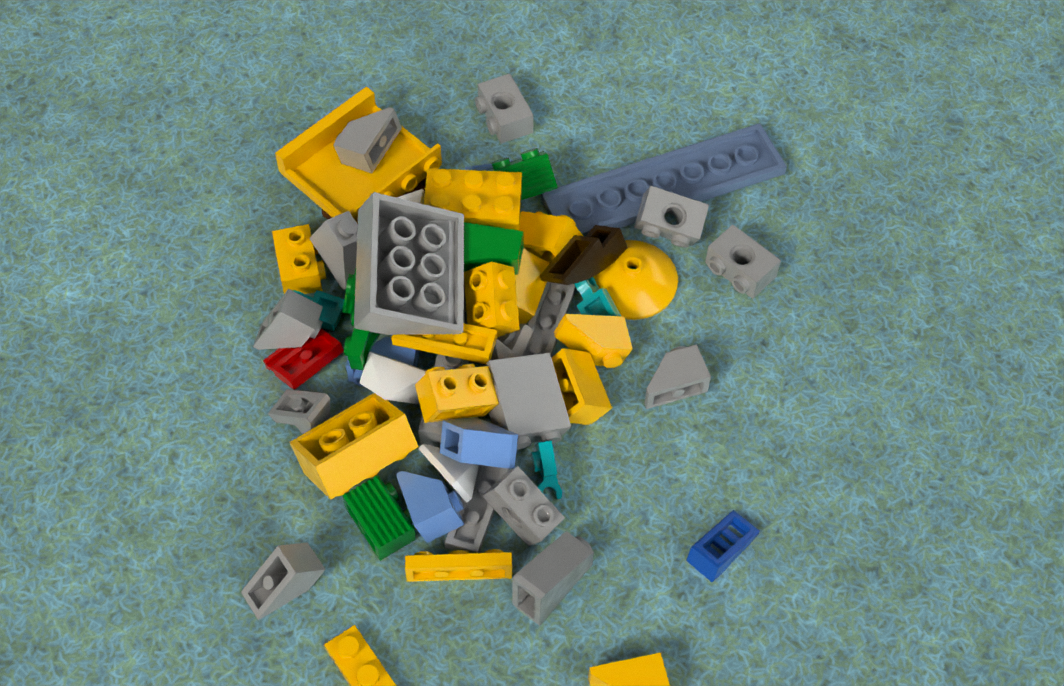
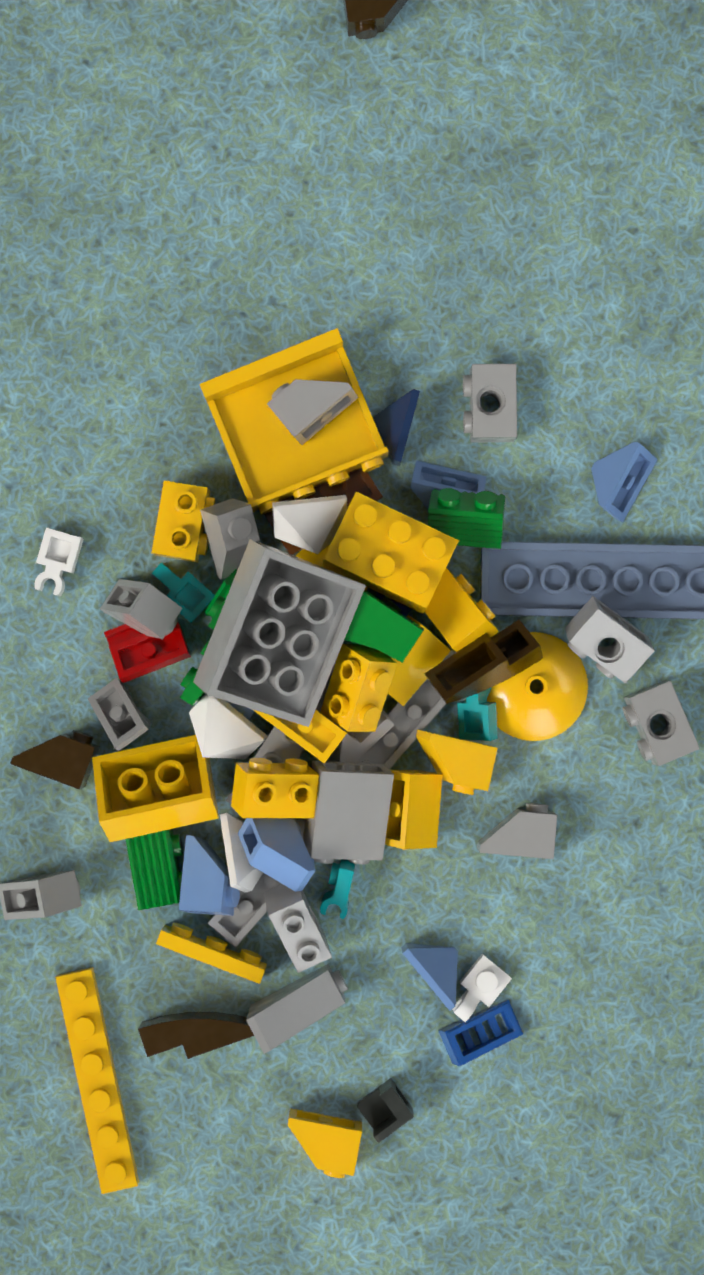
camera: 20 degrees right, 30 degrees up
(202, 320) = (59, 554): none -> white plate
(259, 464) = (61, 759): none -> dark brown slope
(441, 134) = (395, 423): none -> dark blue slope
(472, 637) = (194, 1030): none -> dark brown slope
(625, 122) = (621, 477): none -> medium blue slope
(658, 507) = (437, 967): none -> medium blue slope
(673, 635) = (385, 1109): none -> pearl dark grey panel
(704, 506) = (484, 983): none -> white plate

